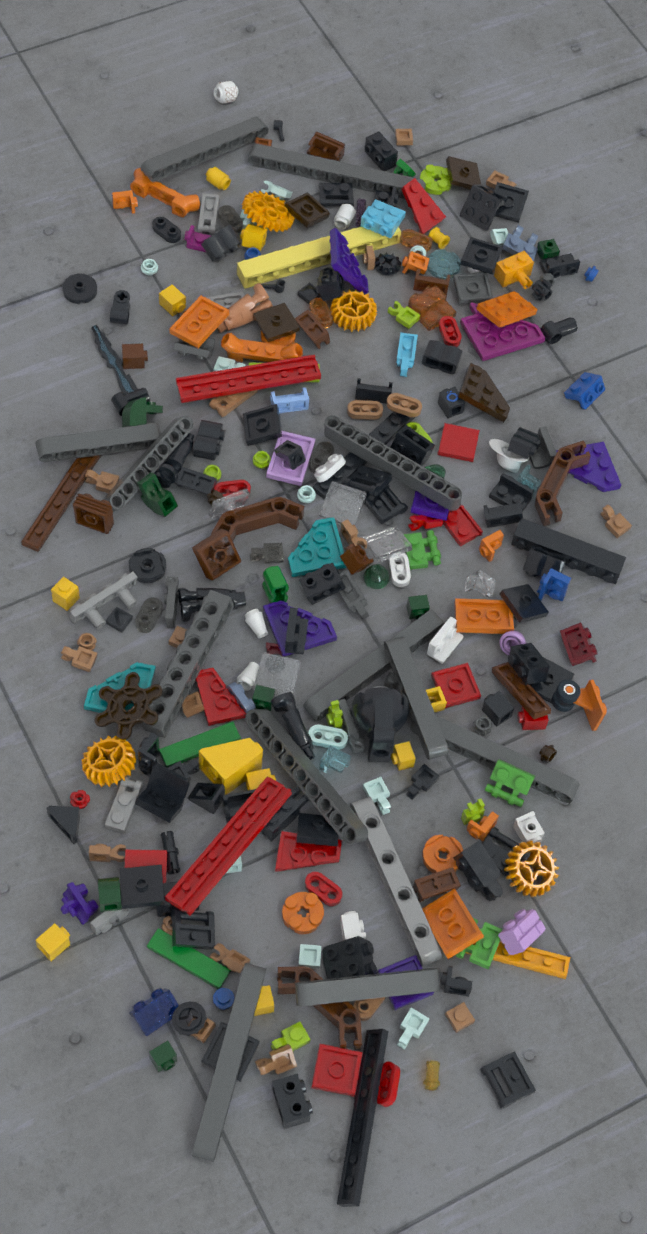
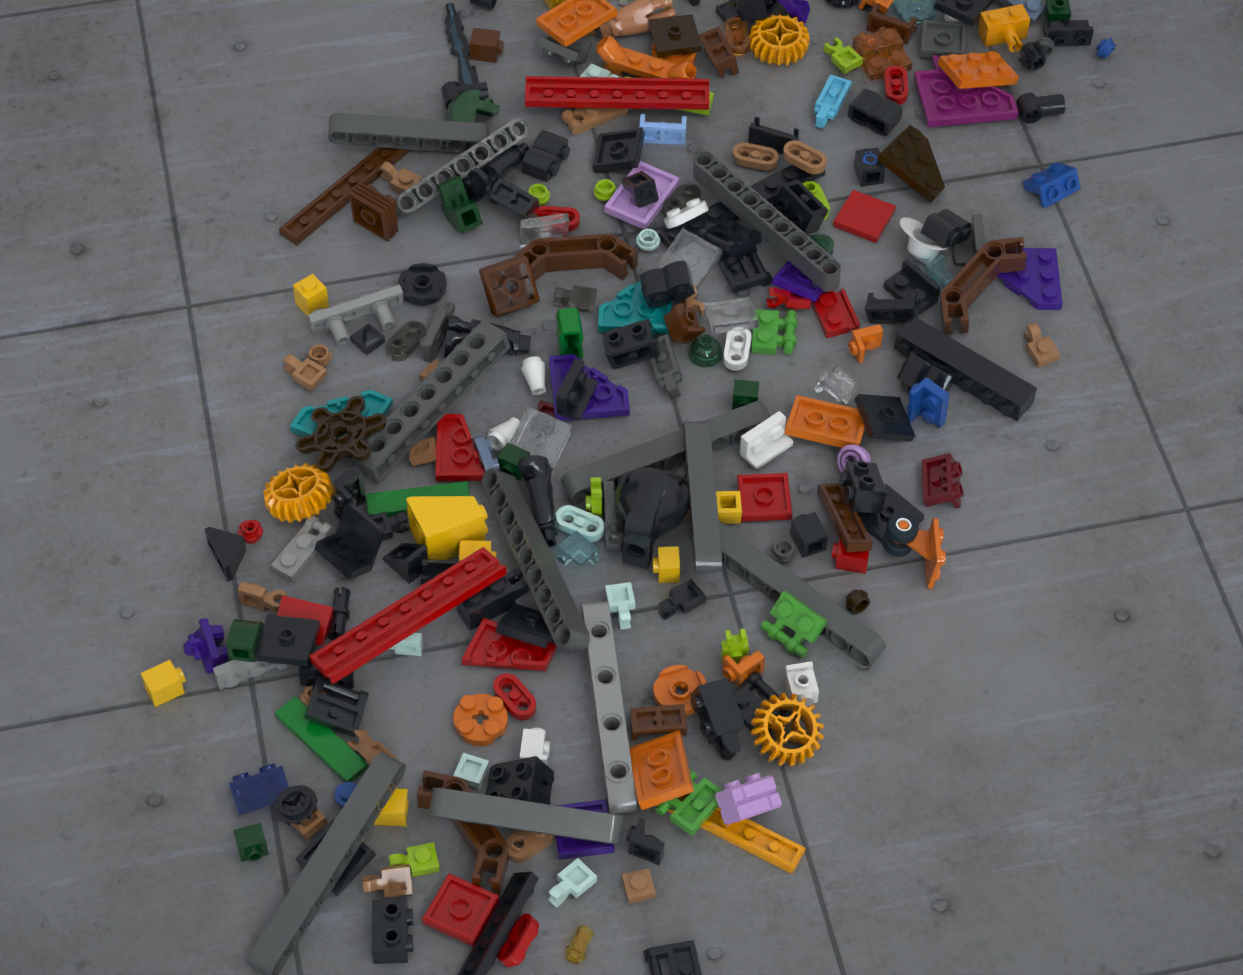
camera: 20 degrees right, 5 degrees down
(336, 530) = (667, 284): none -> black brick

